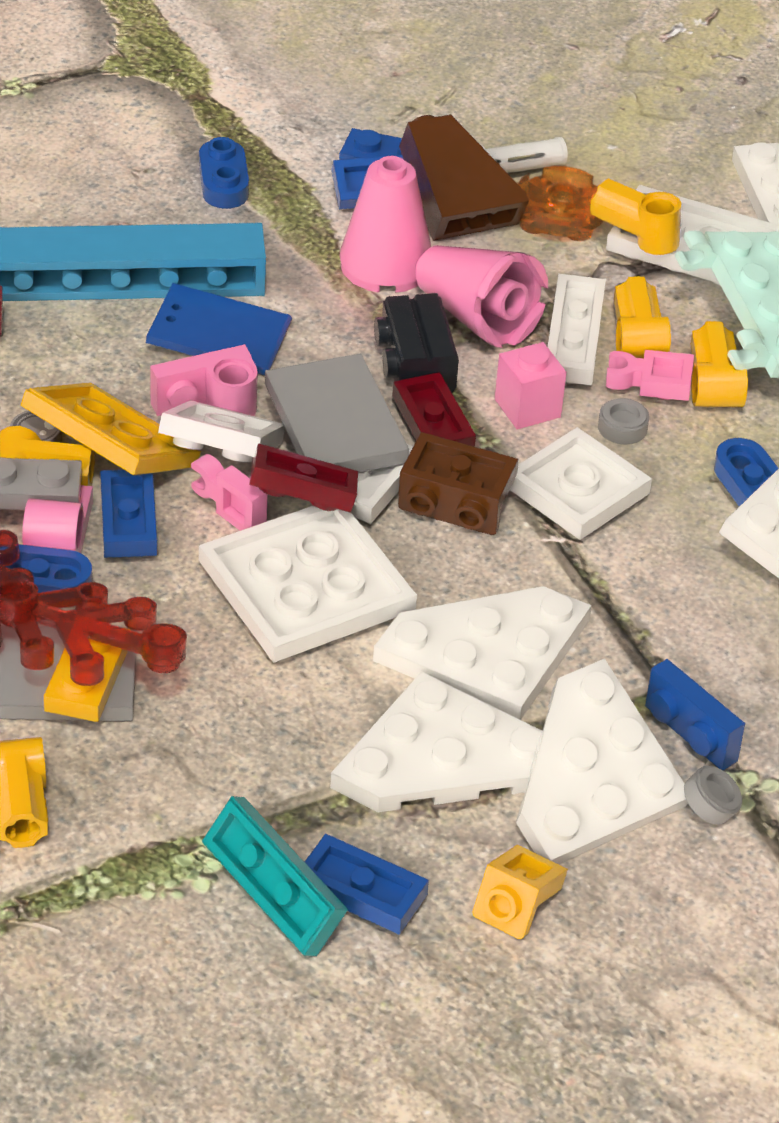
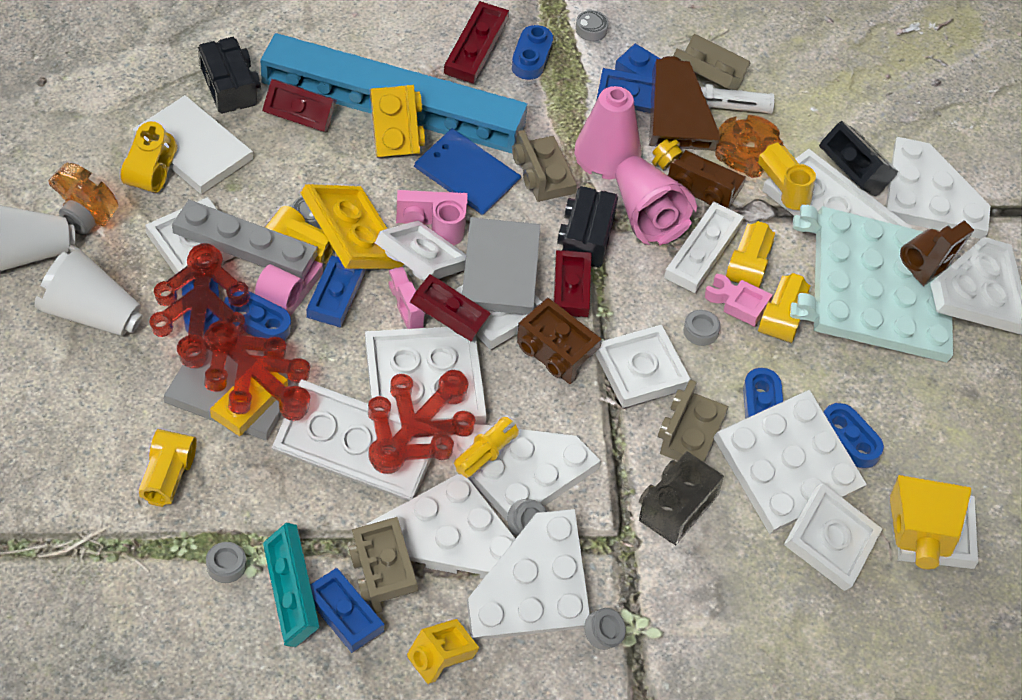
camera: 20 degrees right, 10 degrees up
(101, 288) = (396, 120): none -> yellow bracket
(146, 177) = (476, 42): none -> dark red plate
(164, 882) = (226, 562): none -> light grey tile
(268, 679) = (338, 439): none -> white tile
(283, 124) = (591, 25): none -> light grey tile
(316, 296) = (543, 167): none -> dark tan bracket
(329, 668) = (451, 390): none -> clear red plant
(384, 805) = (384, 561): none -> dark tan bracket
(444, 626) = (485, 447): none -> yellow axle
(467, 234) = (666, 153): none -> yellow plate
(484, 121) = (714, 62): none -> dark tan bracket
(530, 385) = (646, 282): bright pink brick -> none
(532, 695) = (521, 513): none -> light grey tile
(553, 250) = (706, 179): none -> reddish brown bracket
(680, 534) = (692, 424): none -> dark tan bracket
(694, 715) = (626, 576): blue plate -> none
(707, 176) = (858, 158): none -> black brick
(716, 616) = (685, 500): none -> clear smoke brick

